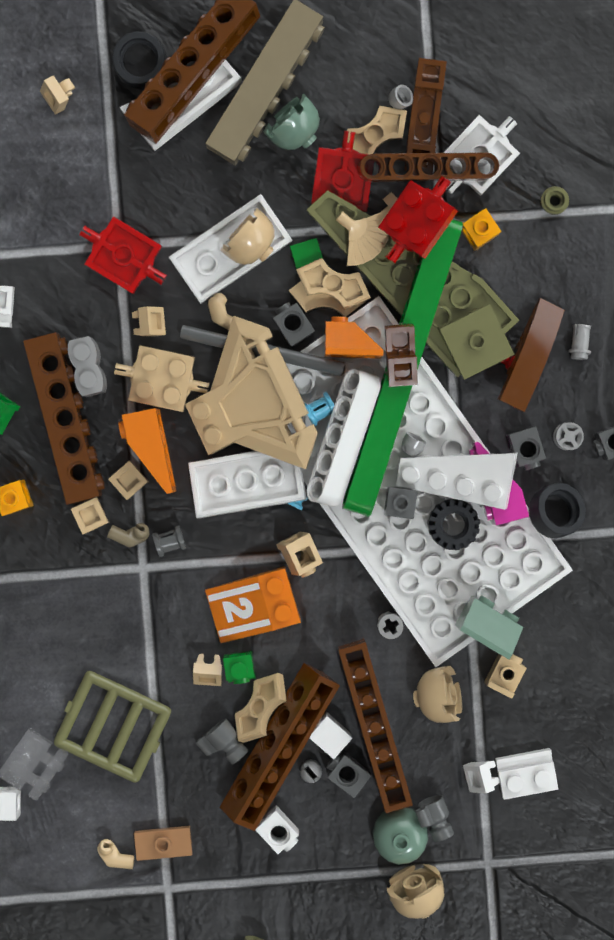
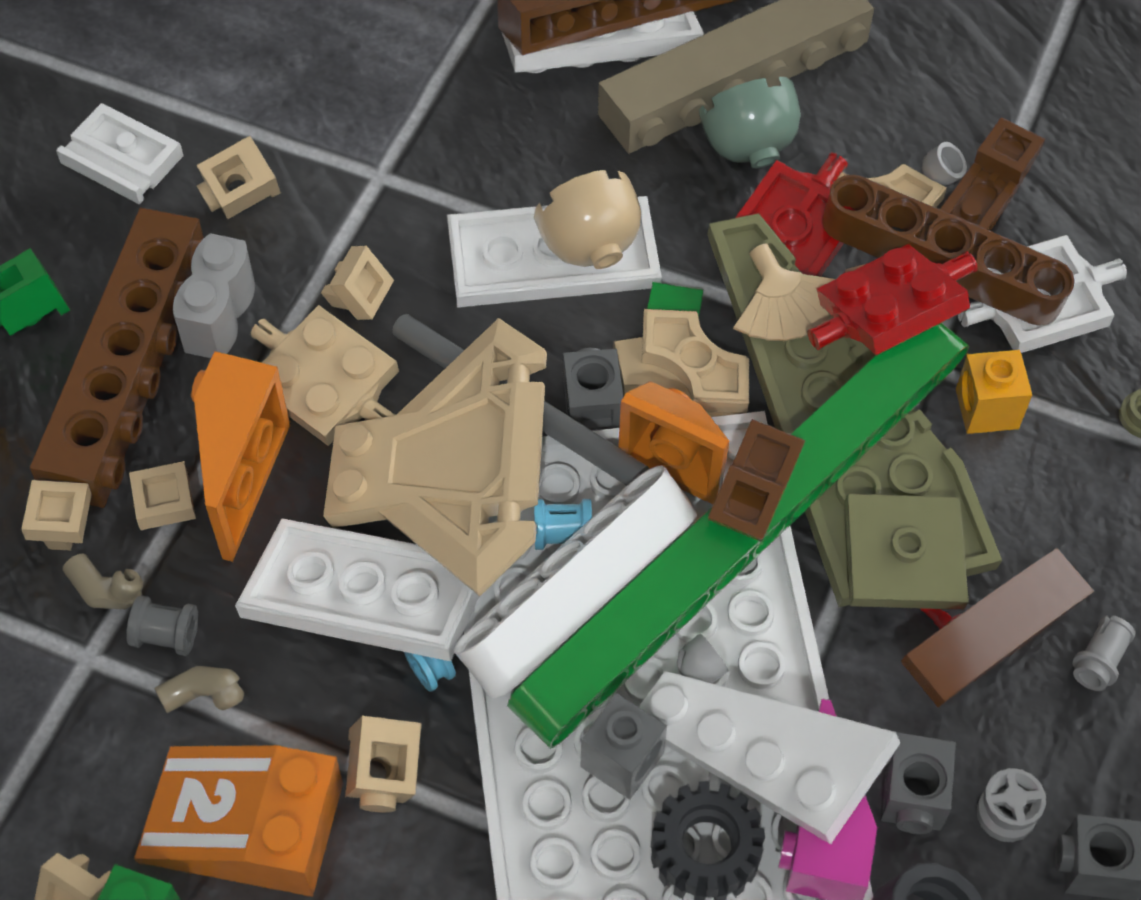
camera: 25 degrees right, 30 degrees down
(55, 304) = (235, 163): none -> tan brick
(123, 255) = (378, 181): red plate -> none
(201, 556) = (201, 681): none -> dark tan arm
(218, 310) = (480, 315): tan arm -> none

